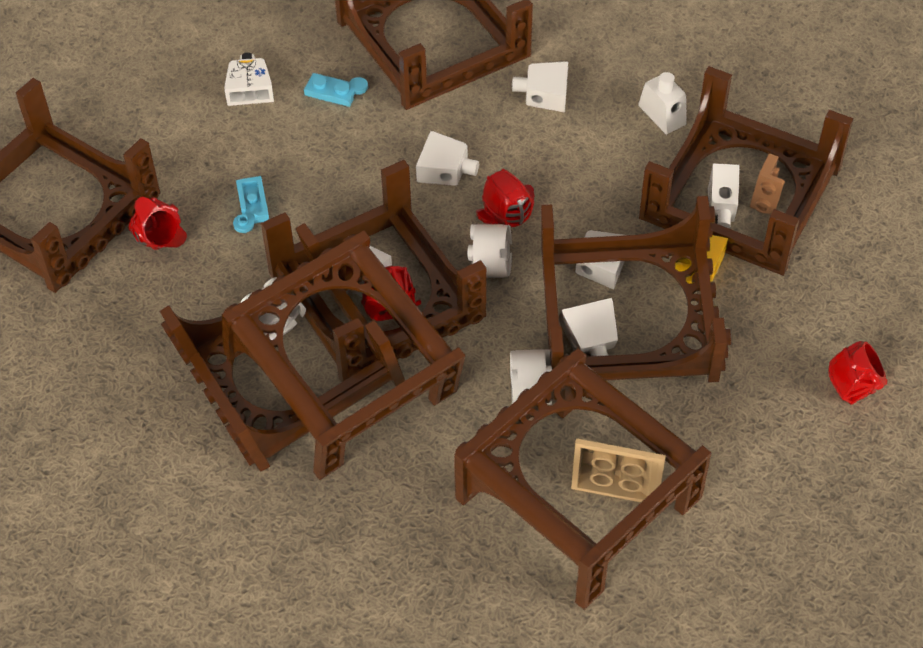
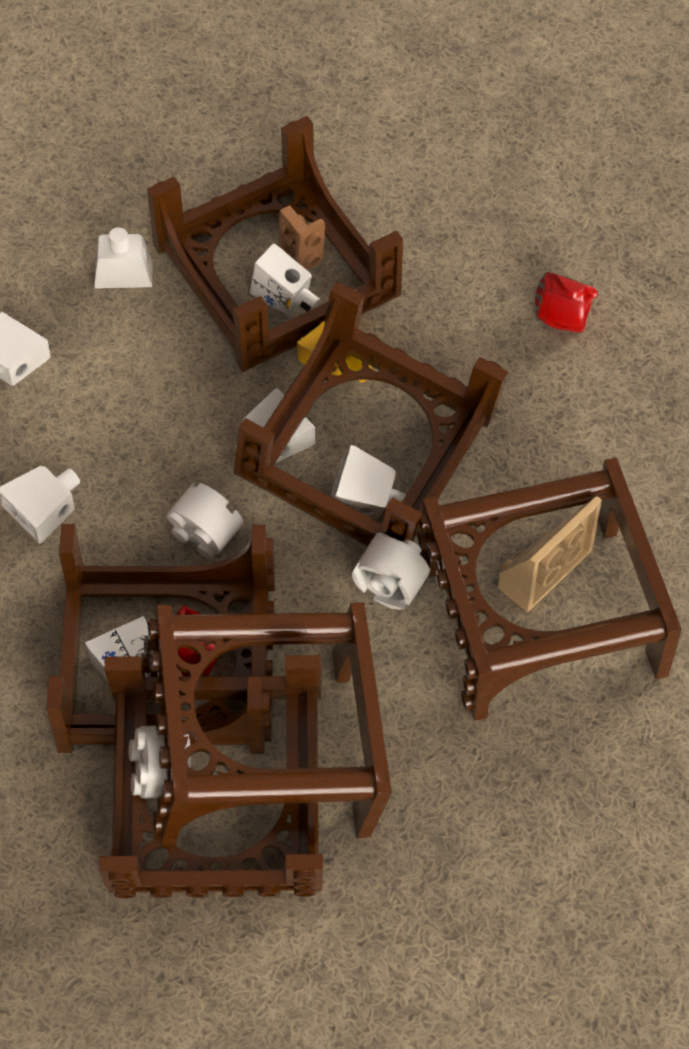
camera: 60 degrees left, 5 degrees up
(502, 193) = (142, 473): red piece -> none

